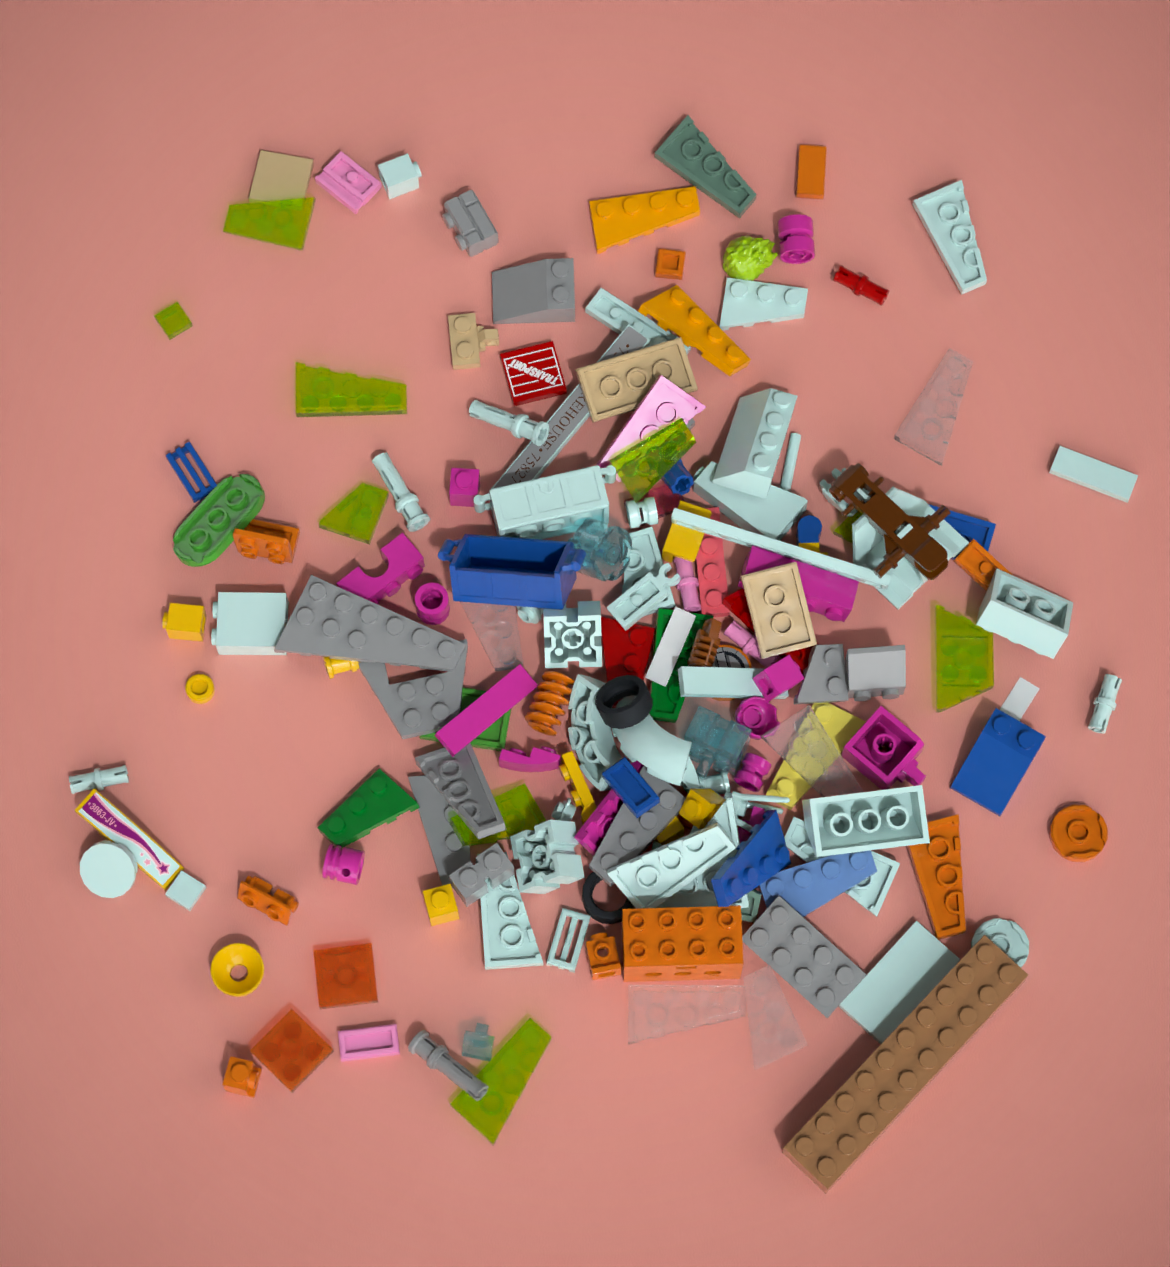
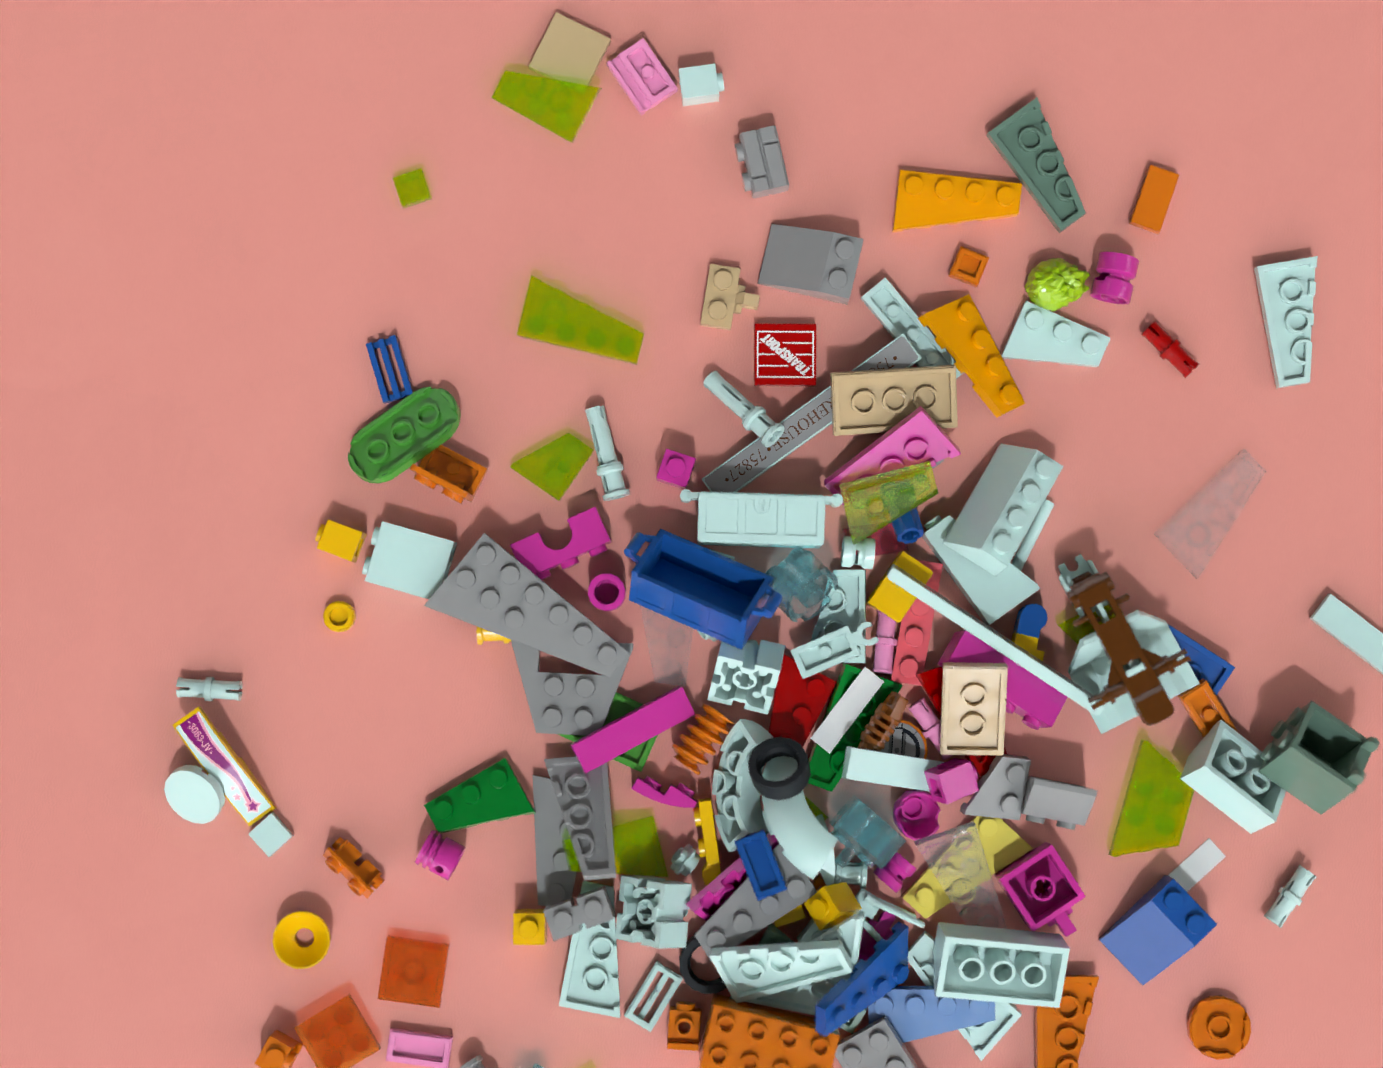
camera: 15 degrees right, 15 degrees up
(1085, 573) = (1316, 757): none -> sand green container

